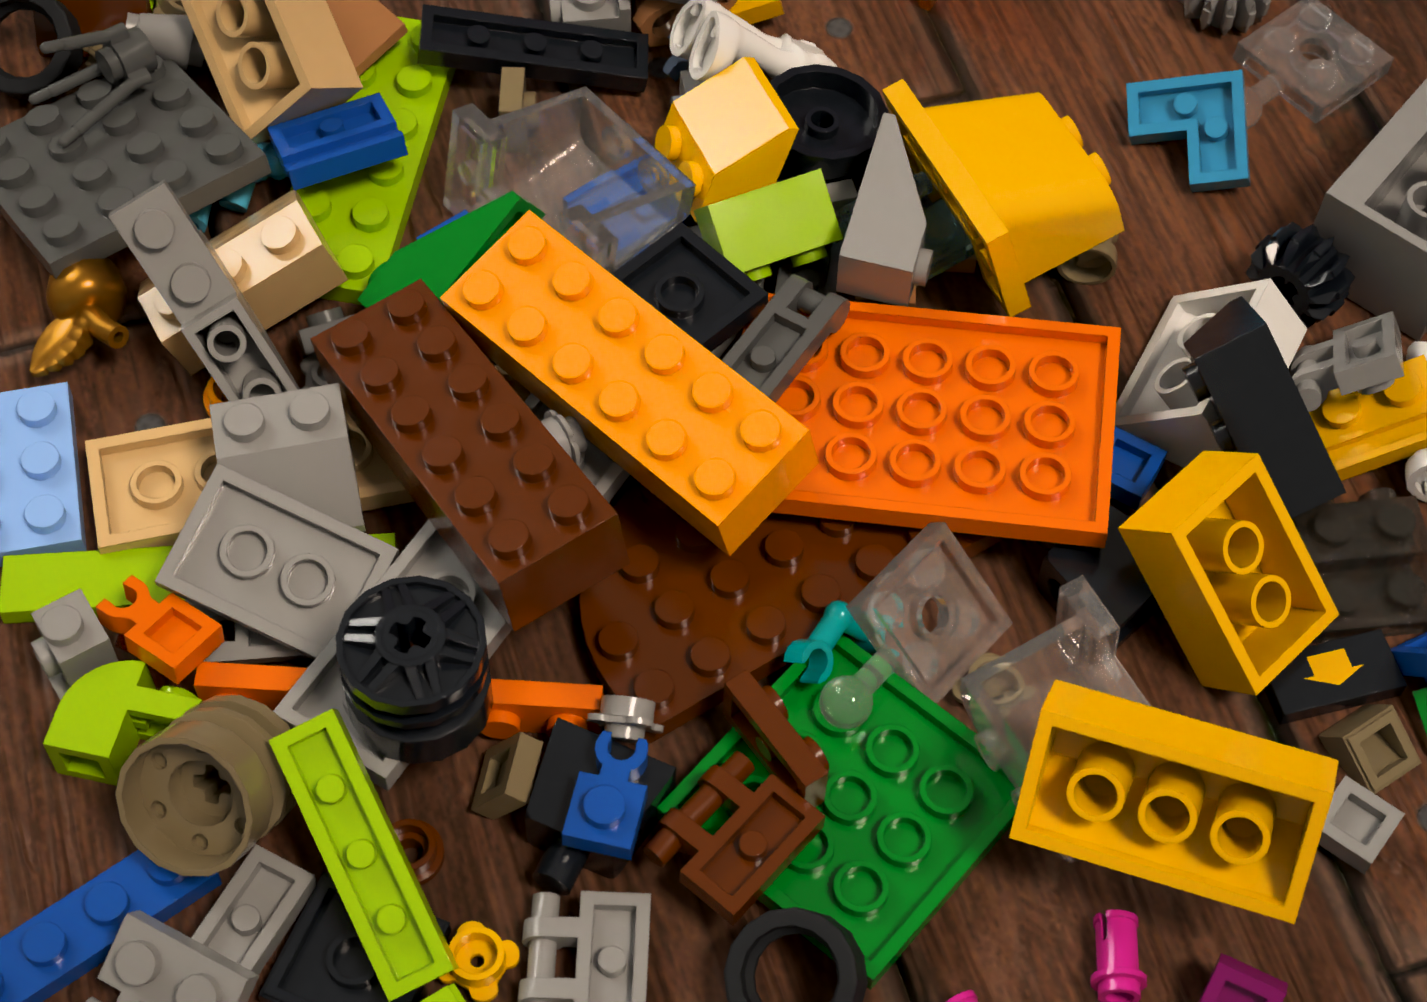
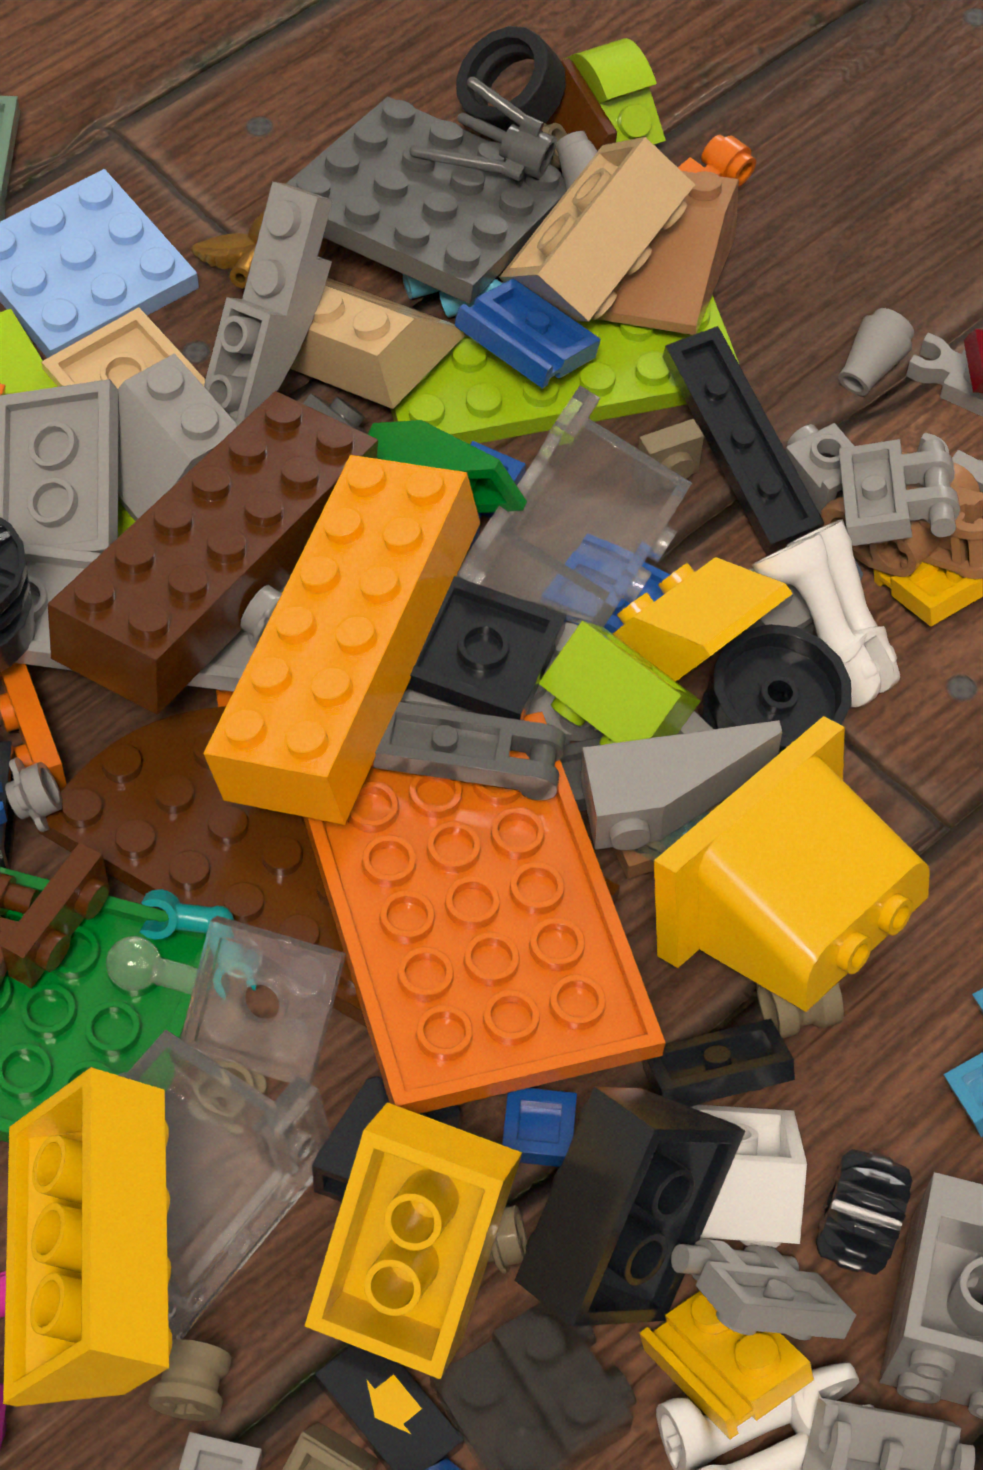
camera: 65 degrees right, 0 degrees up
(1128, 300) = (721, 1064): none -> black plate

